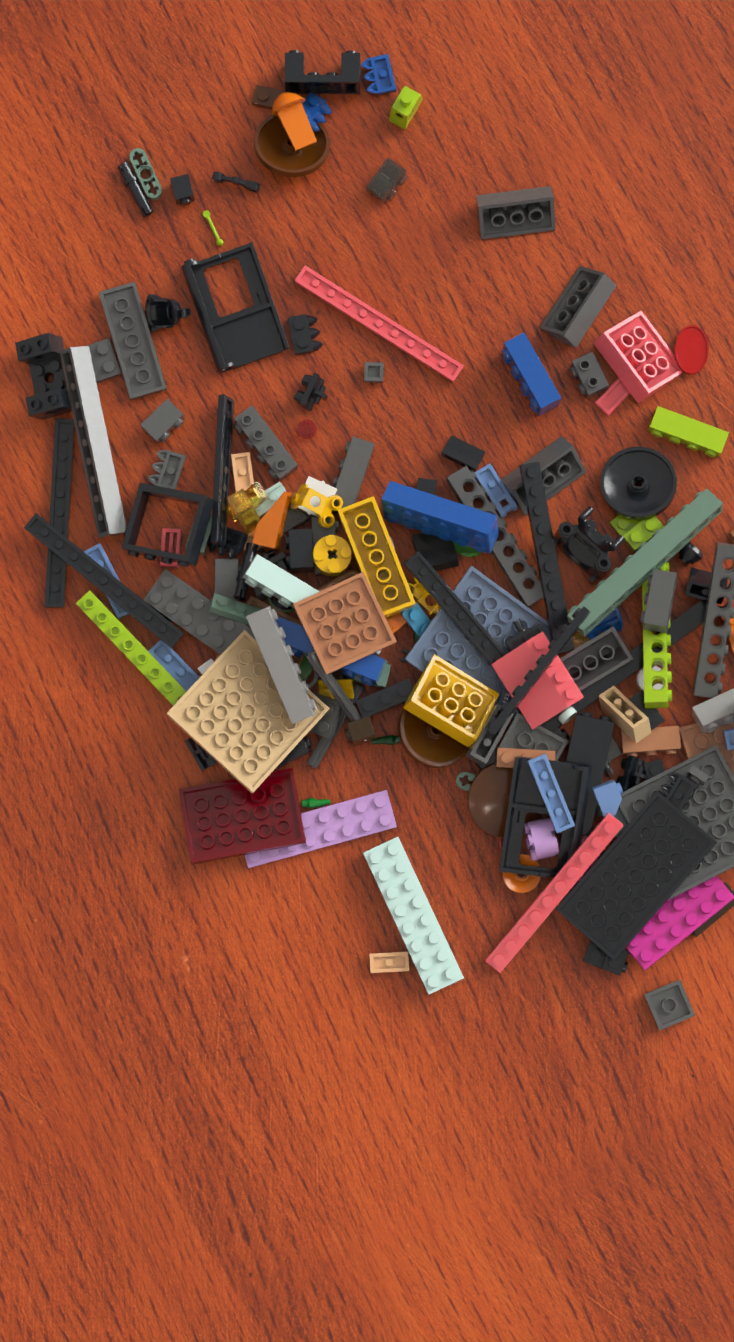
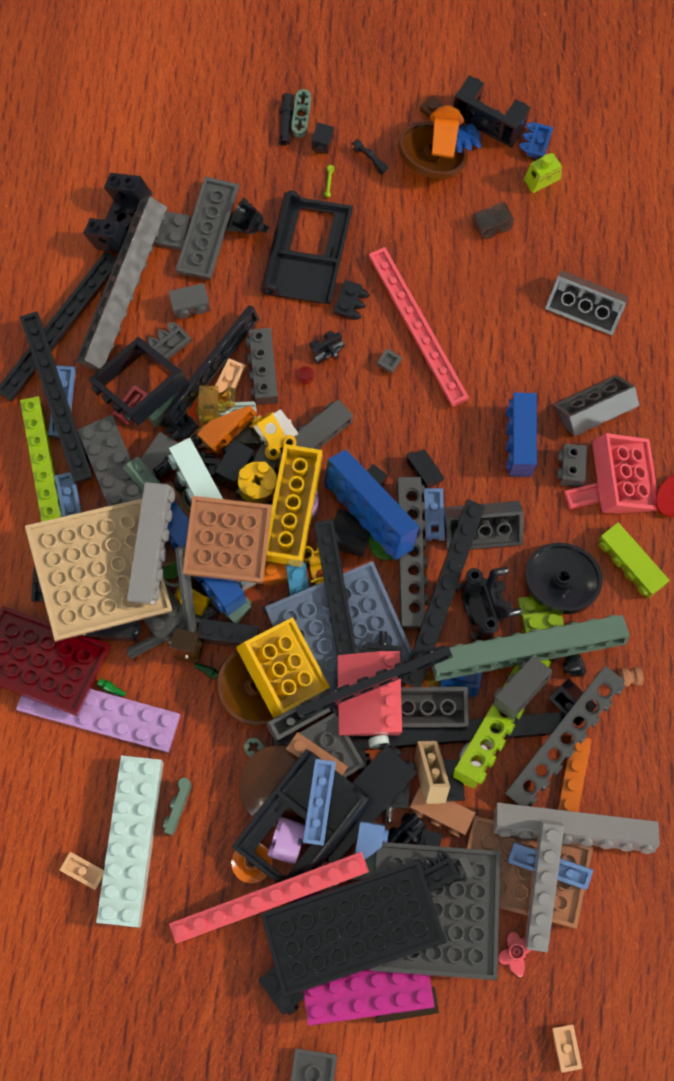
camera: 30 degrees right, 10 degrees down
(433, 865) = (177, 806): none -> sand green plate

